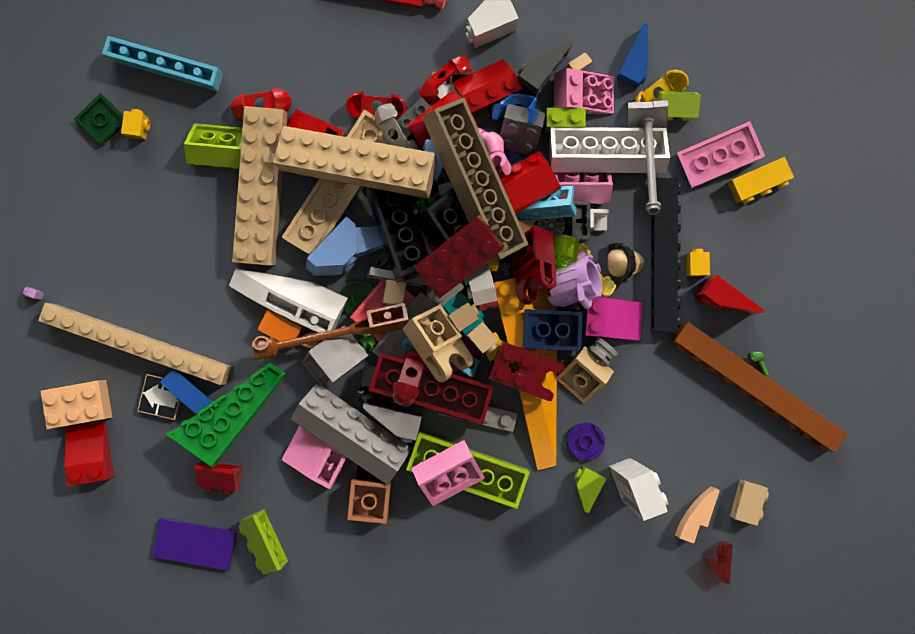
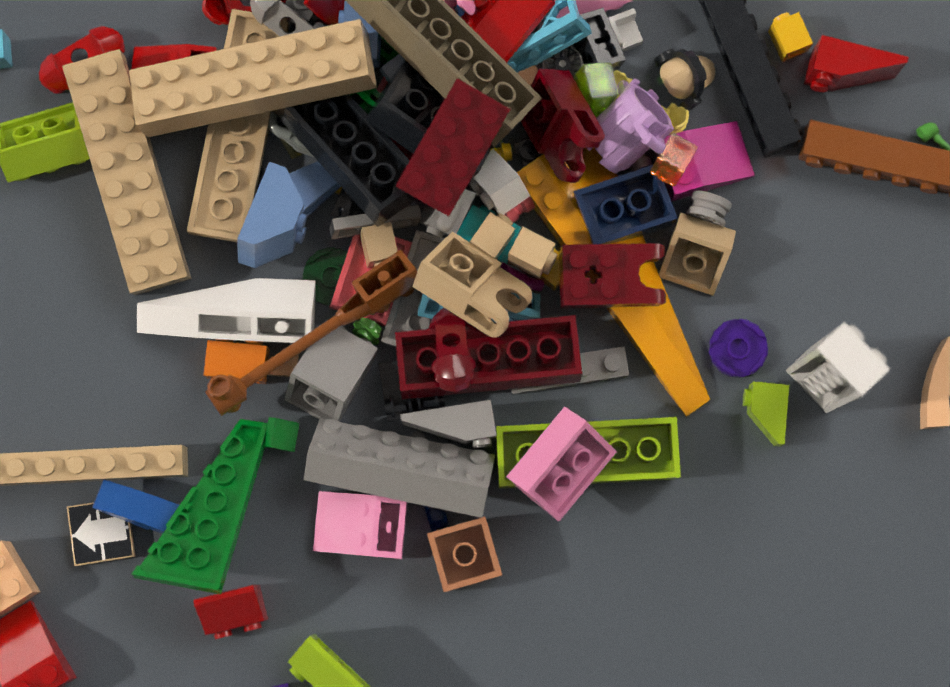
camera: 25 degrees left, 5 degrees down
(290, 383) = (281, 434): none -> green tile
(594, 315) = (674, 159): none -> clear orange bracket

